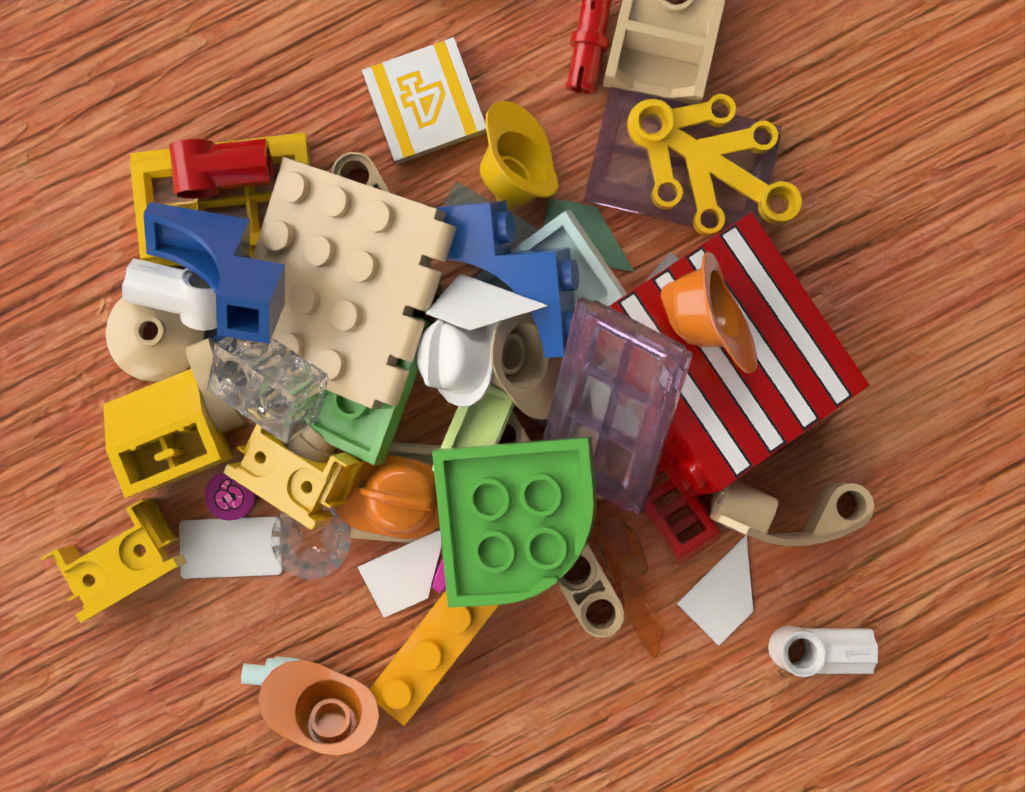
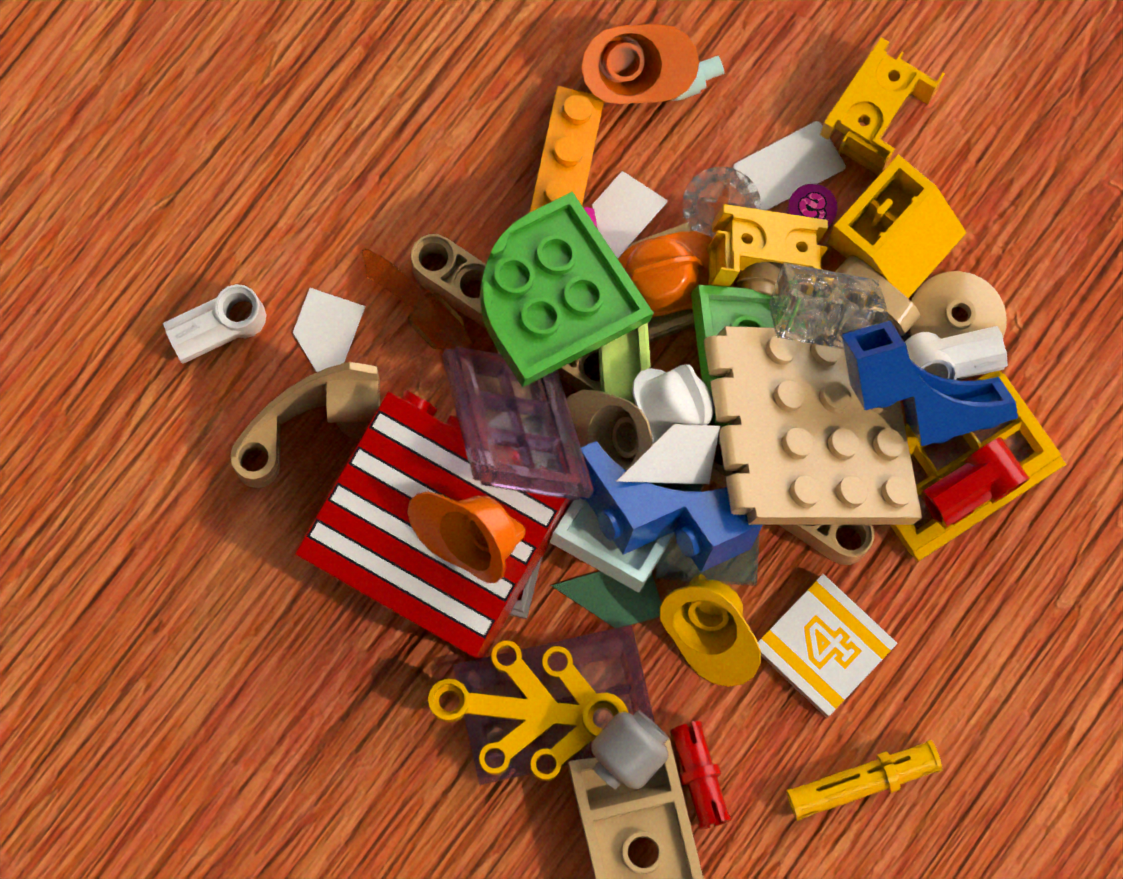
camera: 150 degrees right, 10 degrees down
(648, 73) = (629, 750): none -> light grey head
(710, 532) = (387, 348): red slope -> none

